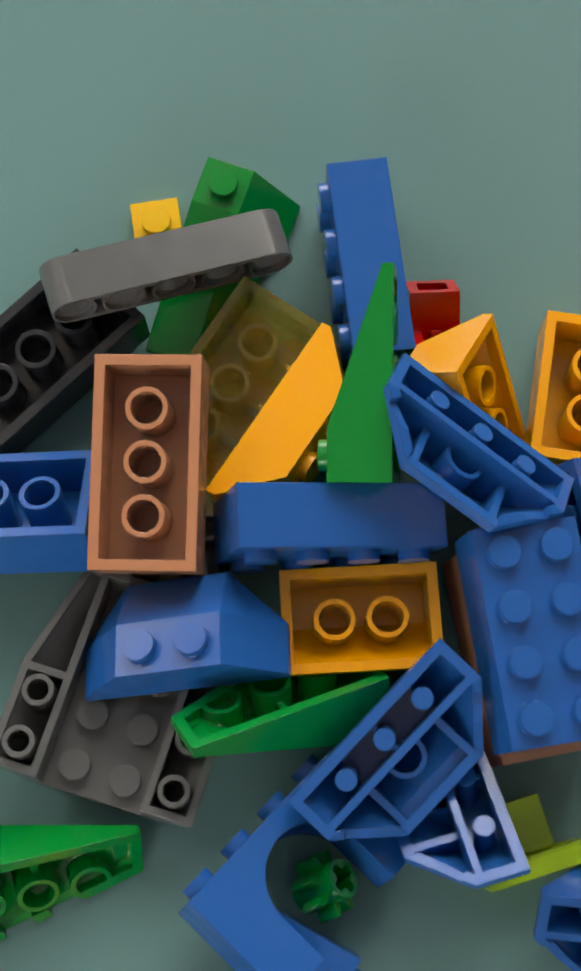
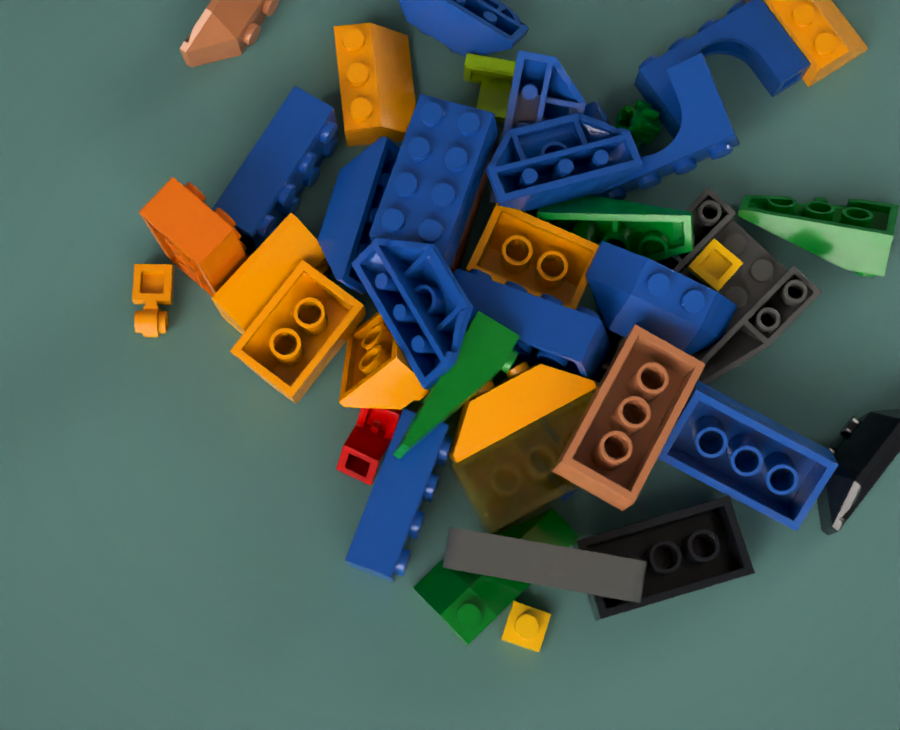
camera: 155 degrees left, 0 degrees up
(135, 731) = (715, 265): none -> yellow plate

